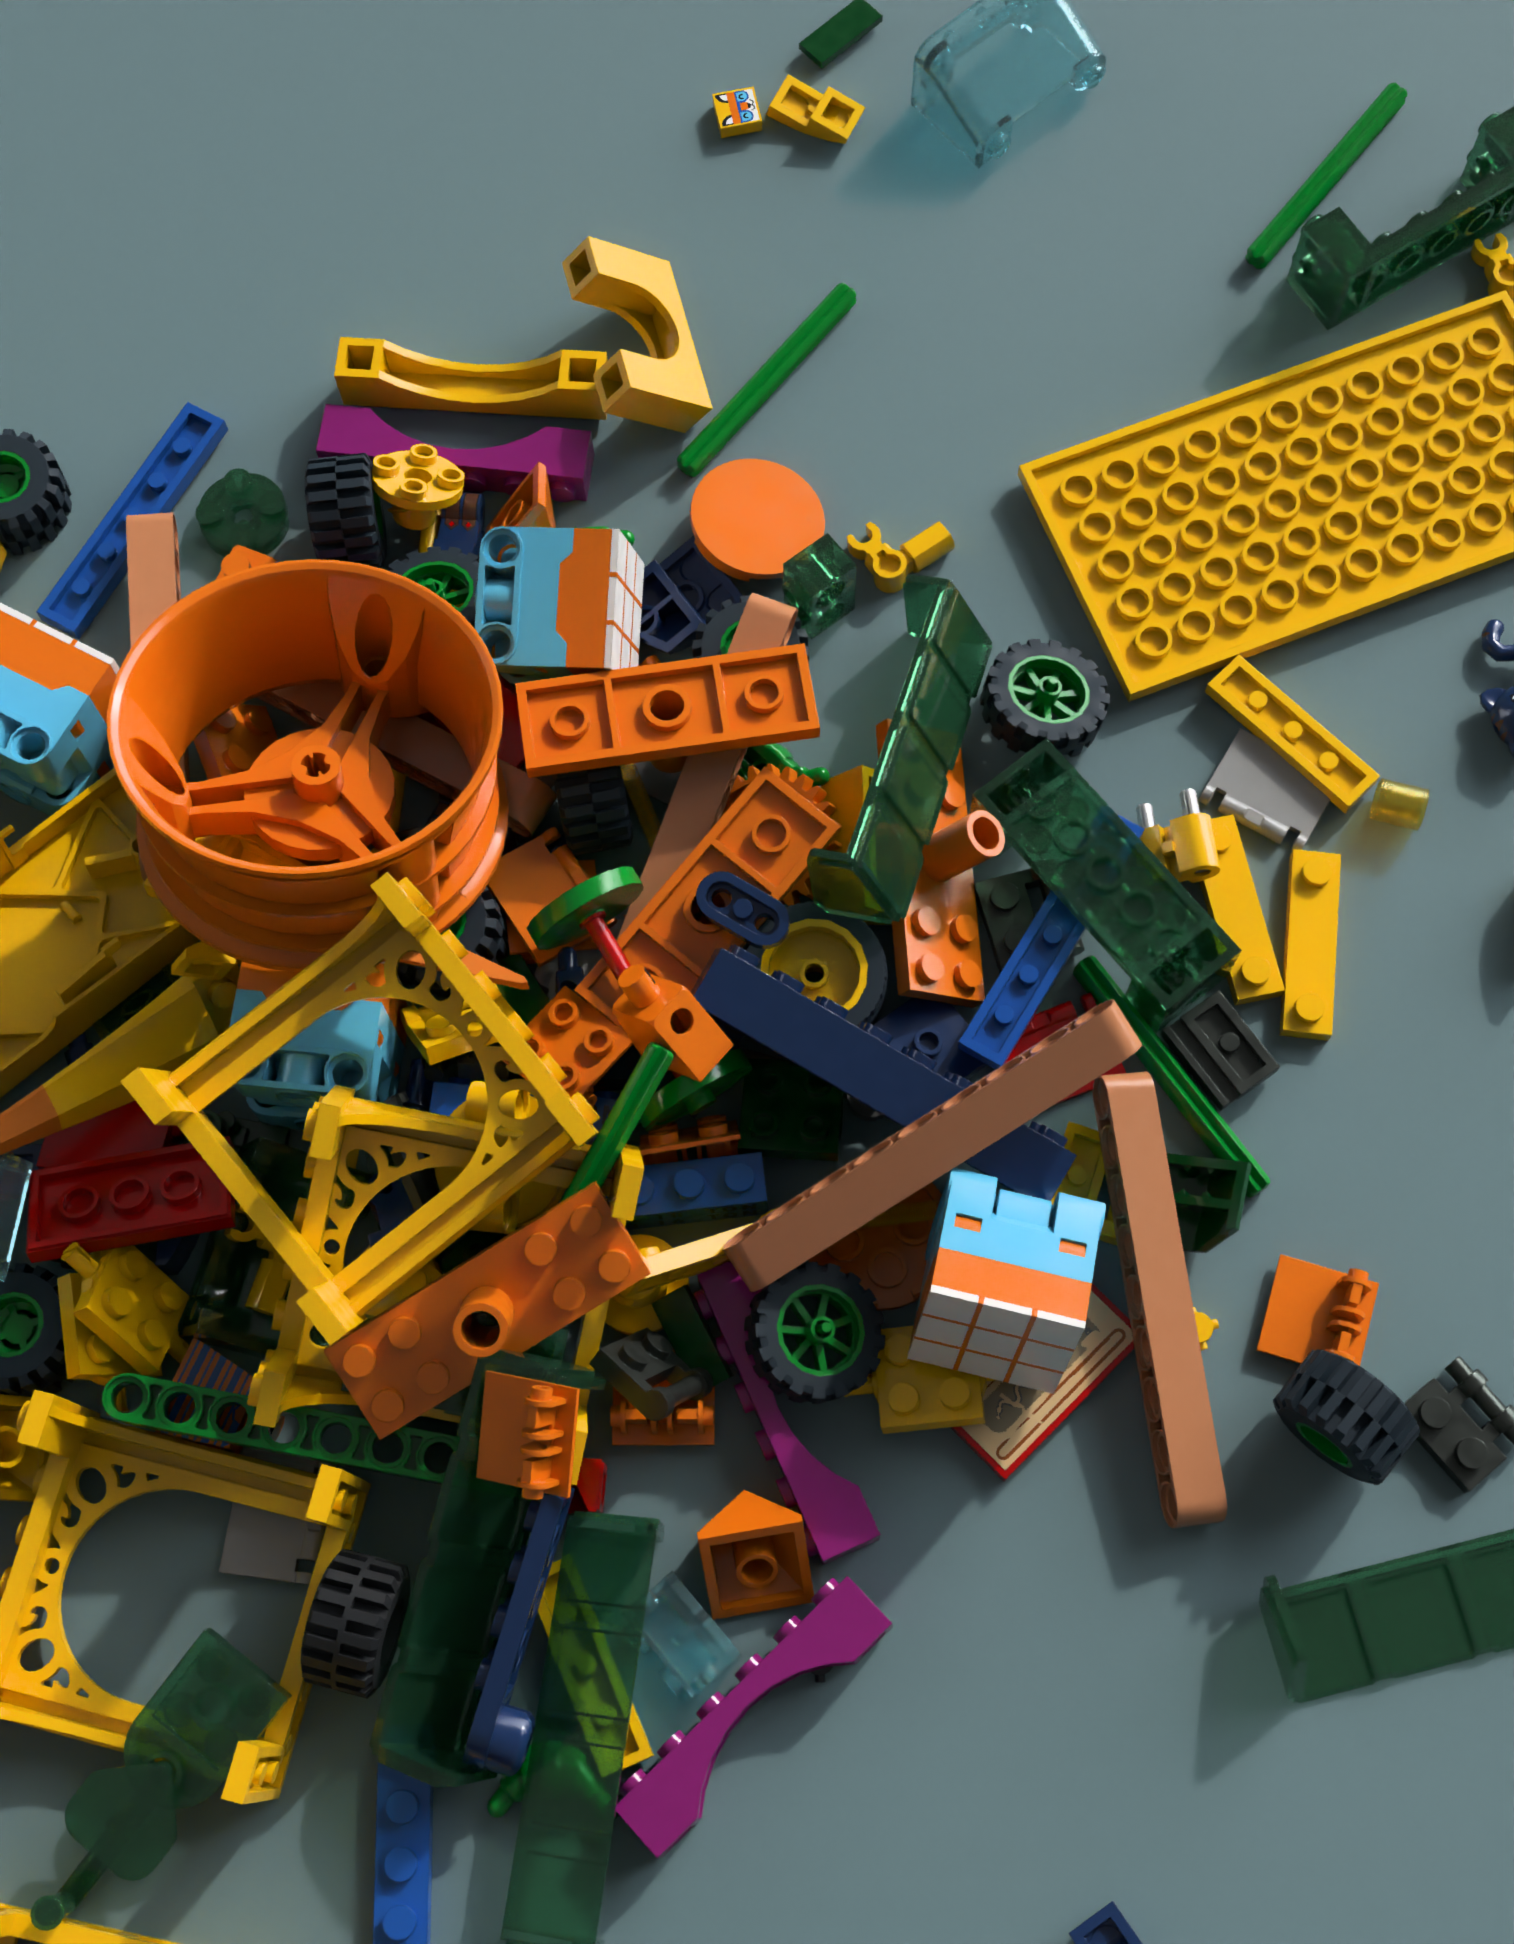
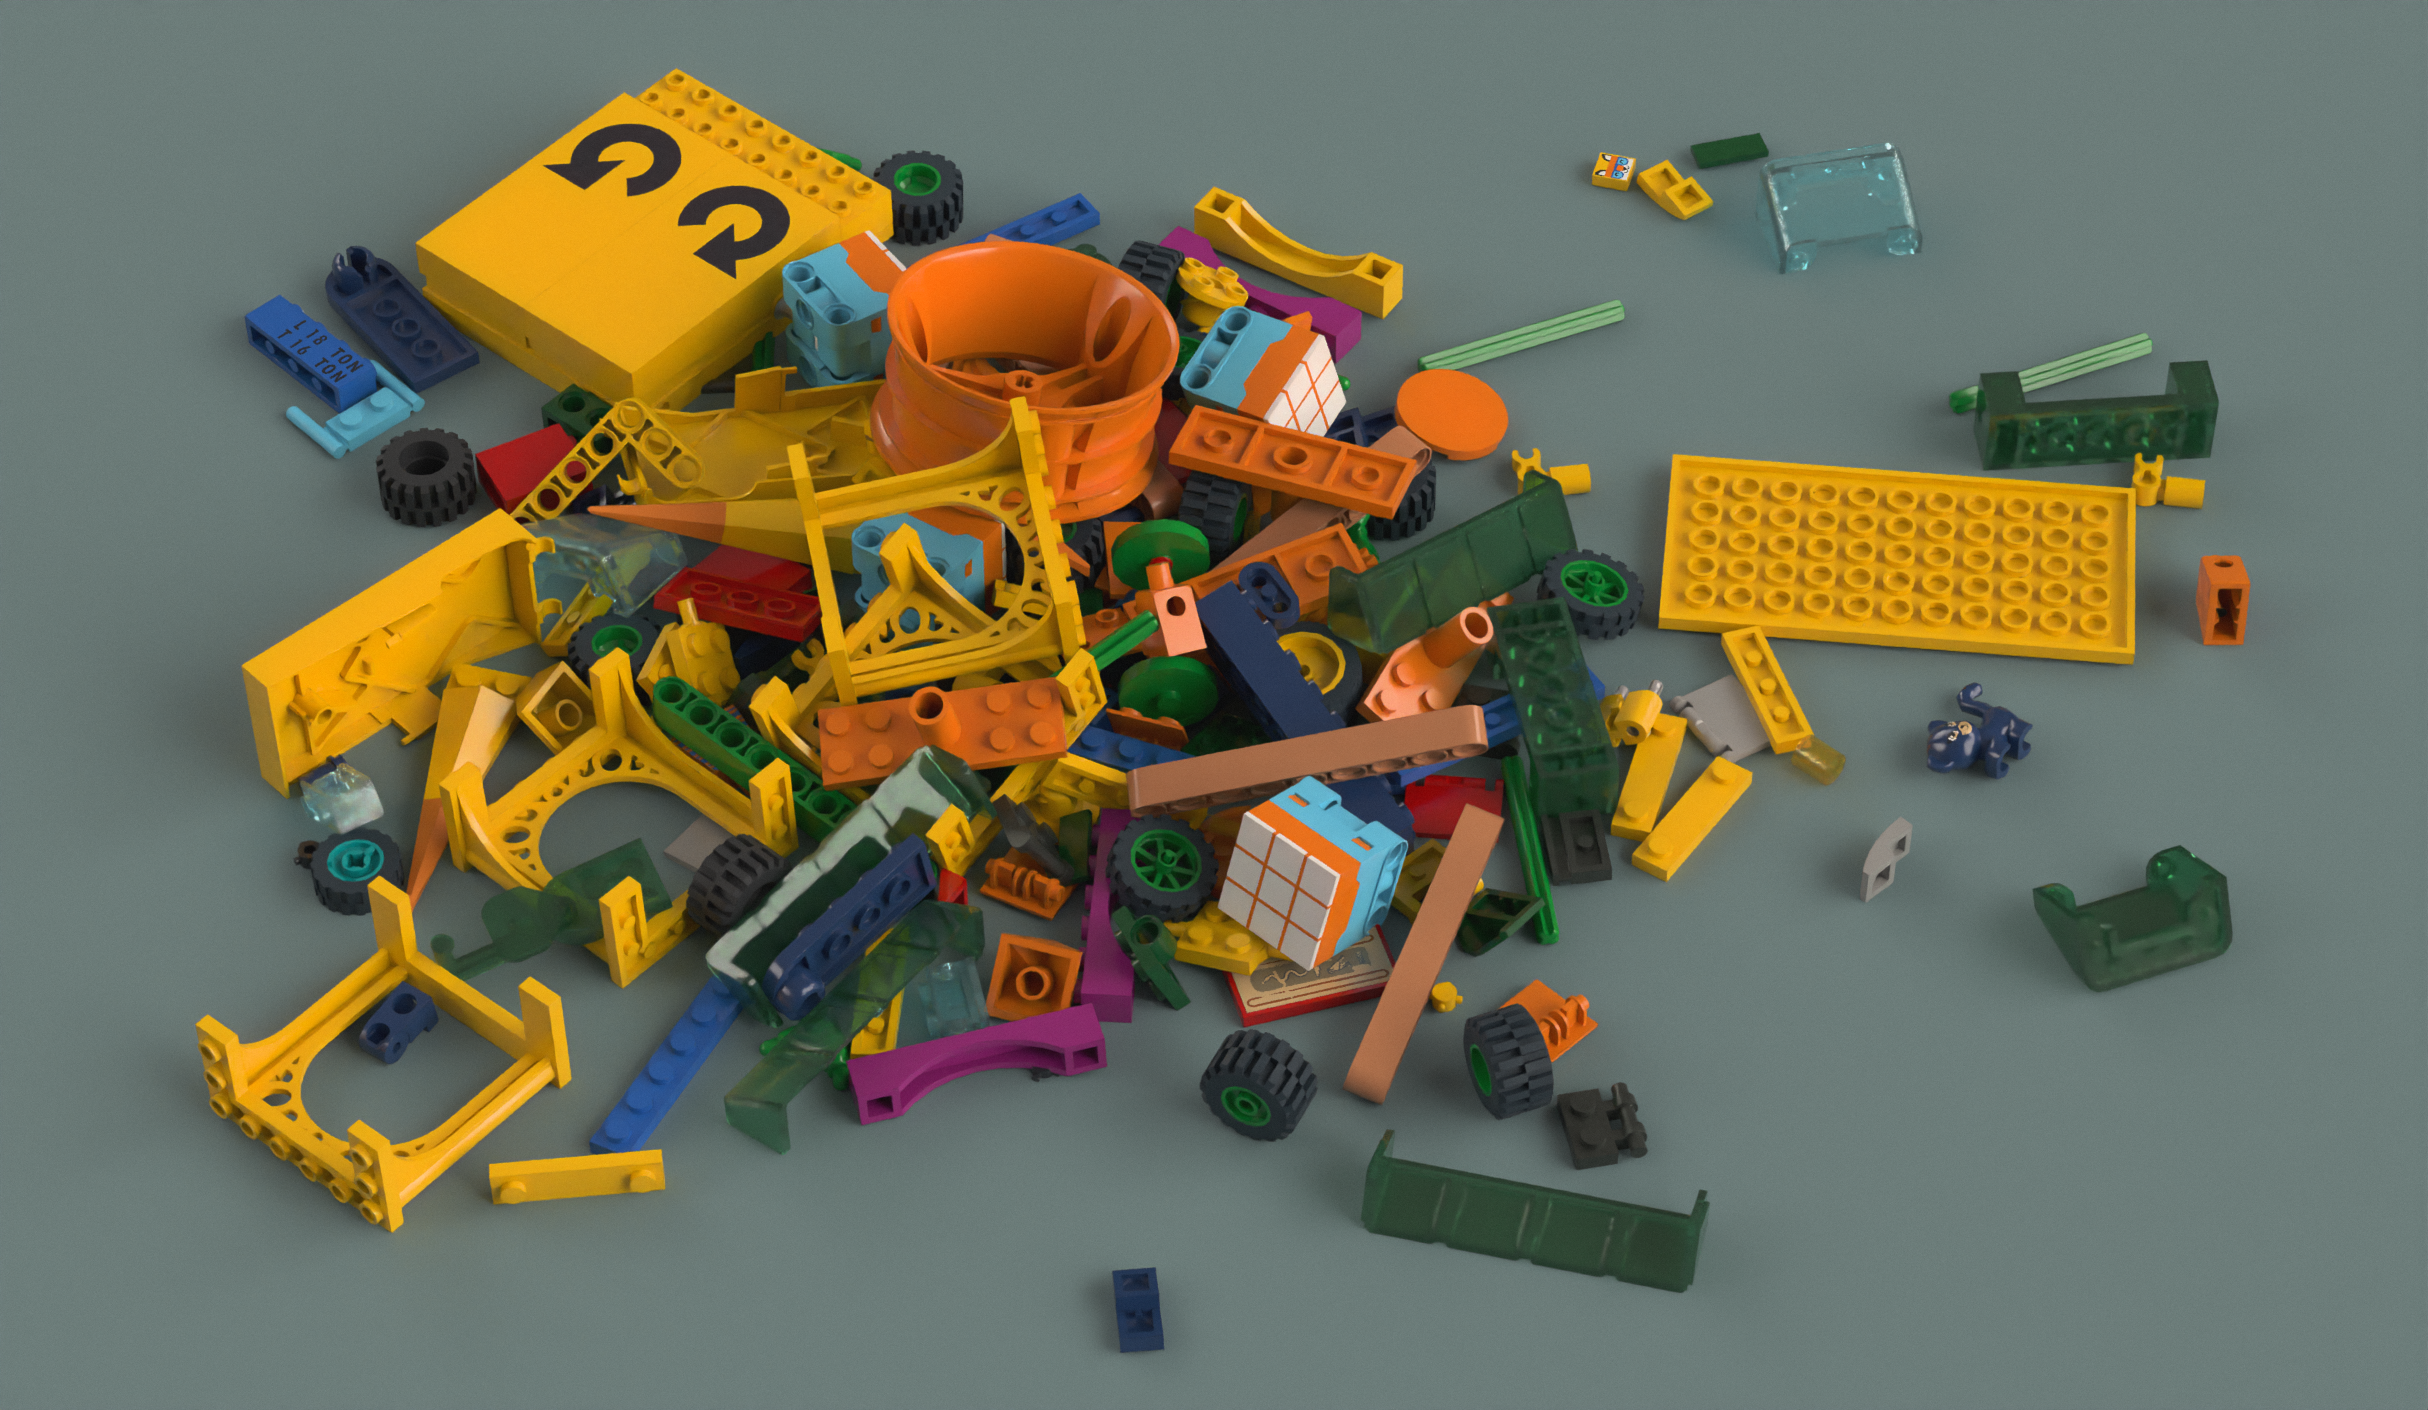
camera: 25 degrees right, 25 degrees down
(528, 1434) = (924, 795): orange hinge -> none
(642, 290) = (1461, 250): yellow arch -> none
(820, 585) = (1465, 462): clear green brick -> none
(872, 1466) = (1151, 949): none -> dark green plate
(1100, 1600) = (1258, 1085): none -> black wheel

